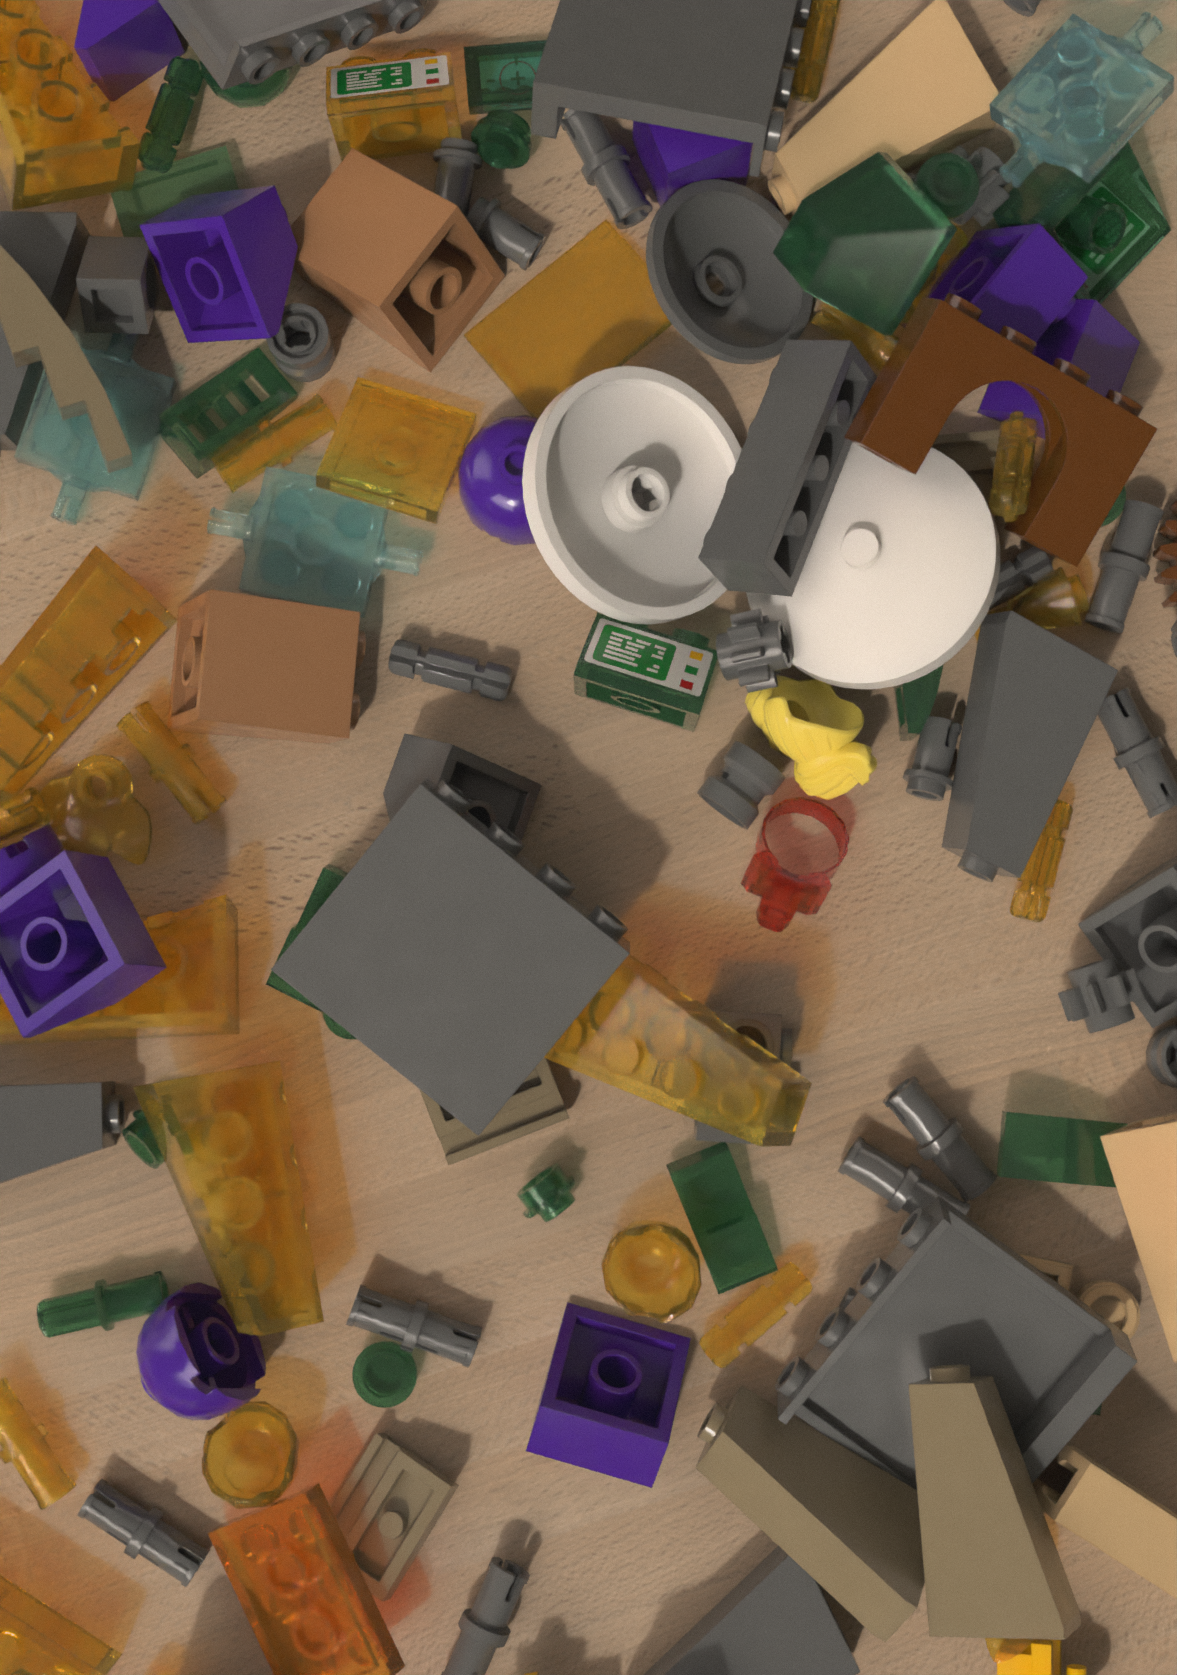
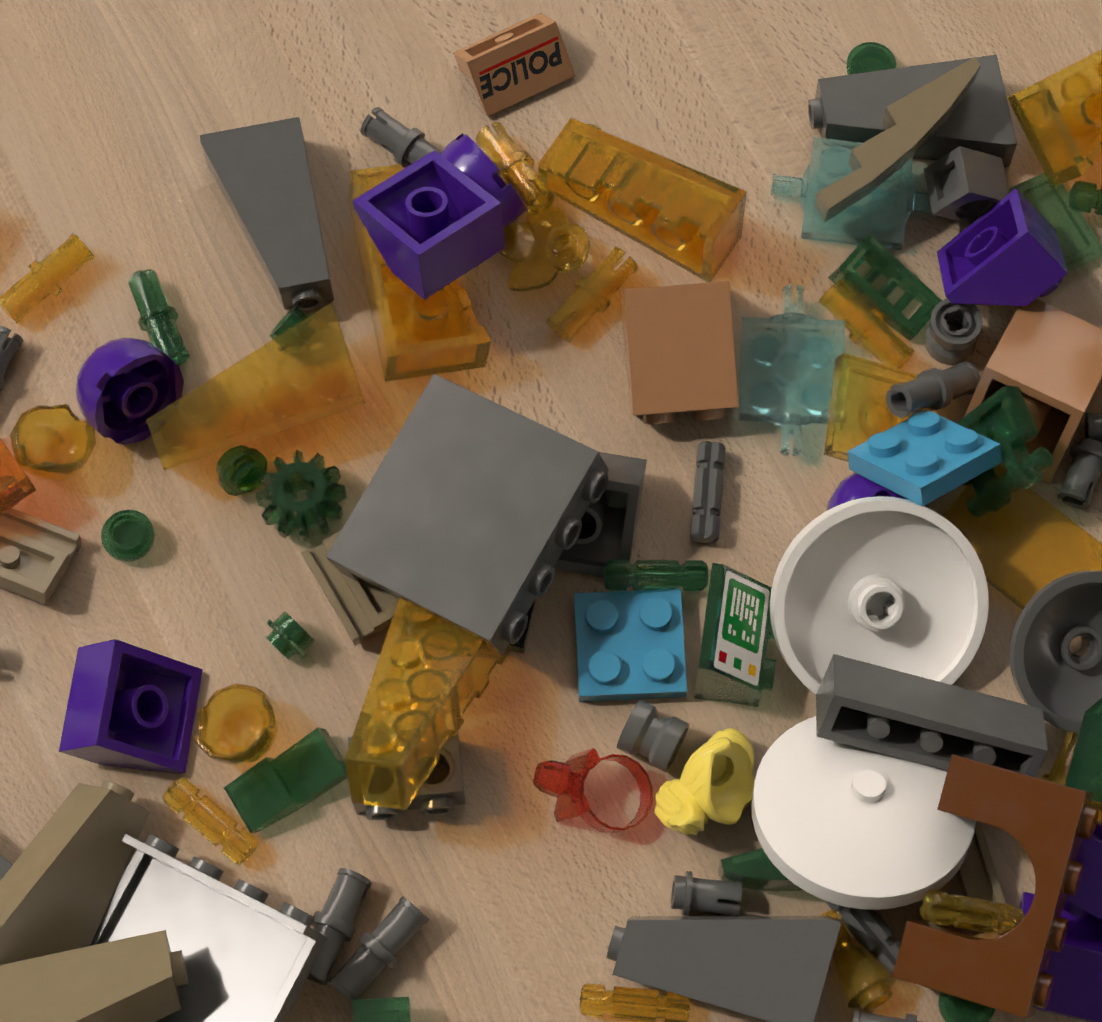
camera: 80 degrees right, 15 degrees down
(330, 1224) = (241, 470): none -> clear green plate
(376, 380) = (932, 389): none -> dark grey pin
(387, 1172) = (281, 489): none -> clear green gear
(414, 1326) = (168, 550): dark grey pin -> none
(453, 325) = (1008, 422): none -> clear green plate
(472, 405) = (924, 457): none -> dark azure plate
(546, 748) = (655, 575): none -> clear green axle
(622, 793) = (630, 645): none -> dark azure plate
(753, 650) = (766, 719): dark grey gear -> none

